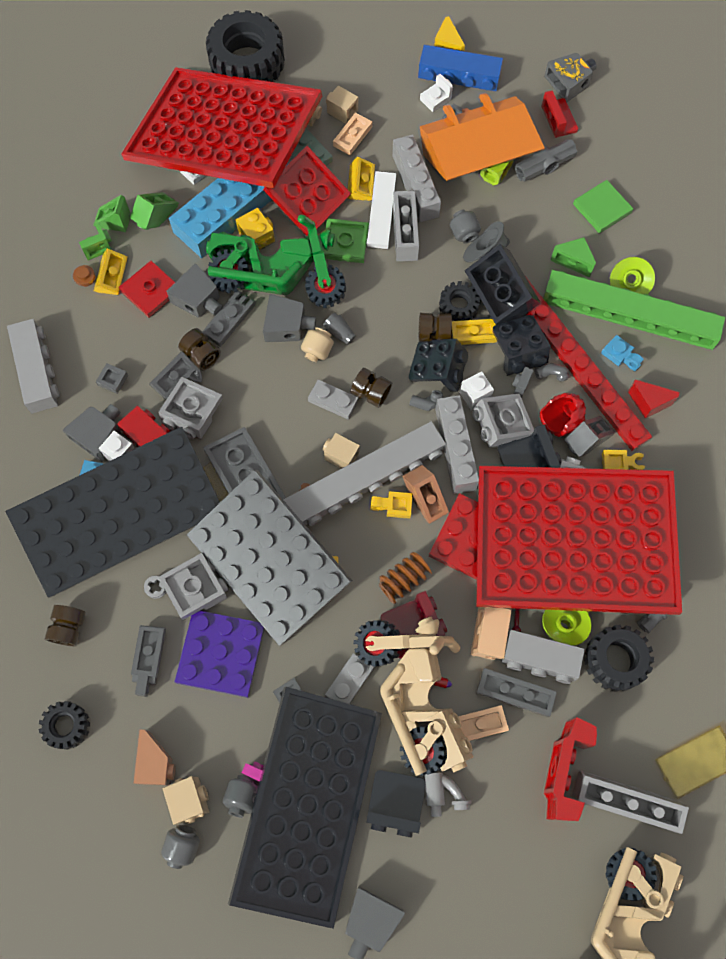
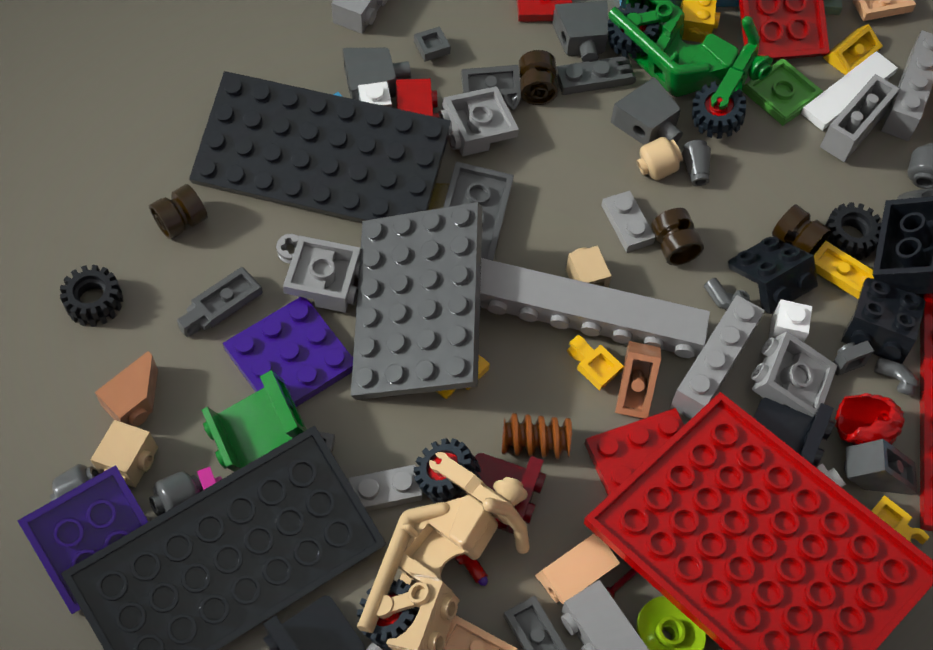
camera: 40 degrees right, 10 degrees down
(210, 865) = (81, 525): none -> dark purple plate
(245, 714) = (254, 424): none -> green panel

